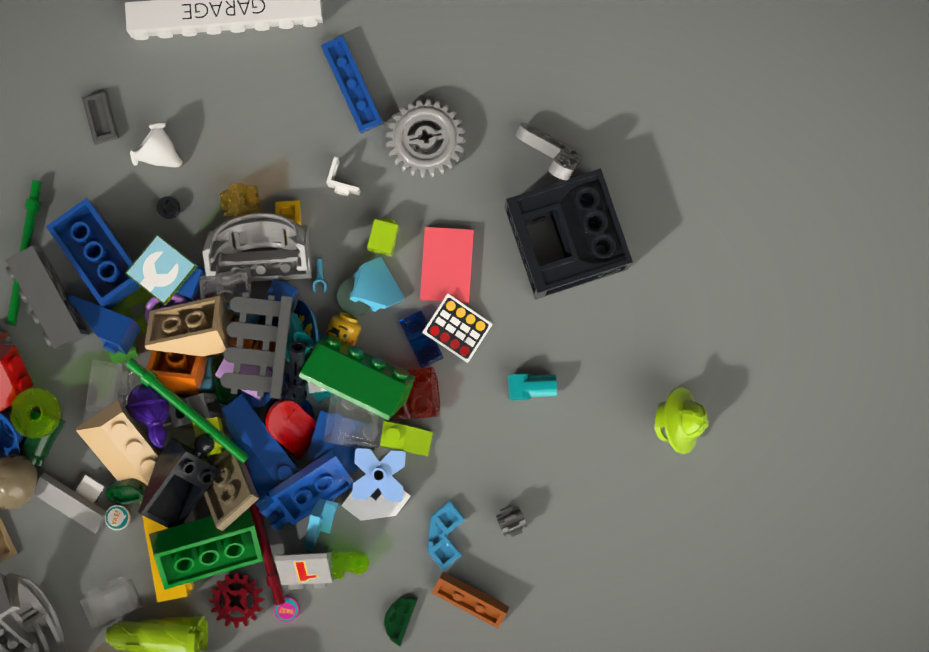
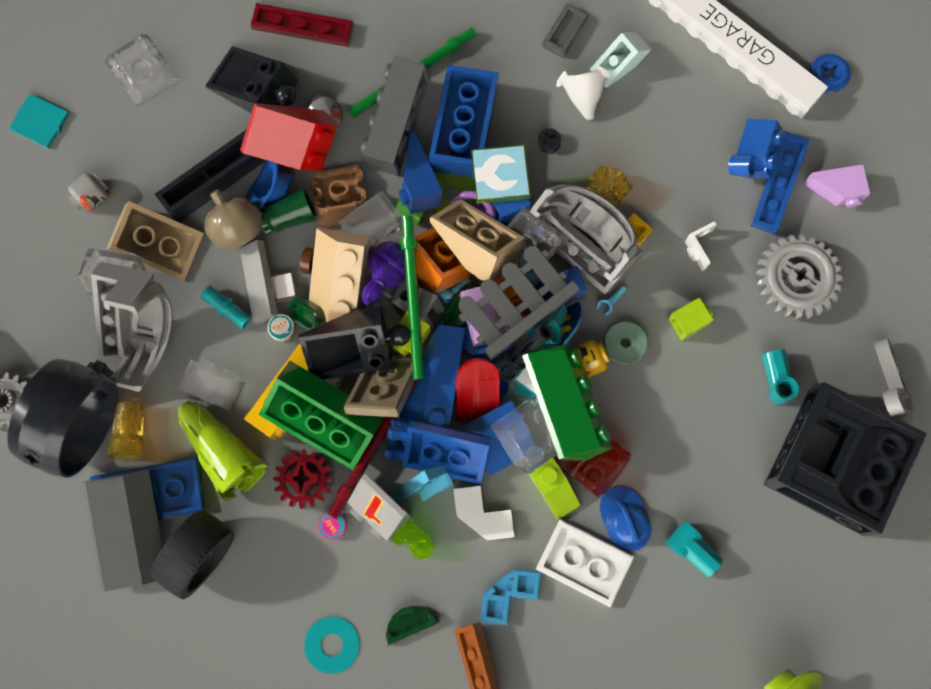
camera: 50 degrees right, 5 degrees down
(49, 416) = (304, 203): clear neon green tile -> none
(65, 542) = (225, 307): none -> teal pin
(67, 384) = (338, 193): none -> medium nougat slope
(88, 455) = (306, 261): none -> reddish brown tile
(159, 99) = (622, 56): none -> light aqua slope
(314, 77) = (758, 149): none -> blue hinge
(375, 286) = (648, 349): medium azure slope -> none
(389, 465) = (522, 496): light blue plant -> none
(393, 47) = (840, 185): none -> lavender slope
(424, 347) = (643, 425): clear blue slope -> none
(446, 264) = (719, 389): coral tile -> none
(457, 328) = (680, 445): sticker -> none
(469, 411) = (625, 518): none -> blue piece
(471, 465) = (585, 563): none -> white tile
(475, 217) = (779, 374): none -> teal piece
(511, 521) = (573, 639): dark grey gear -> none

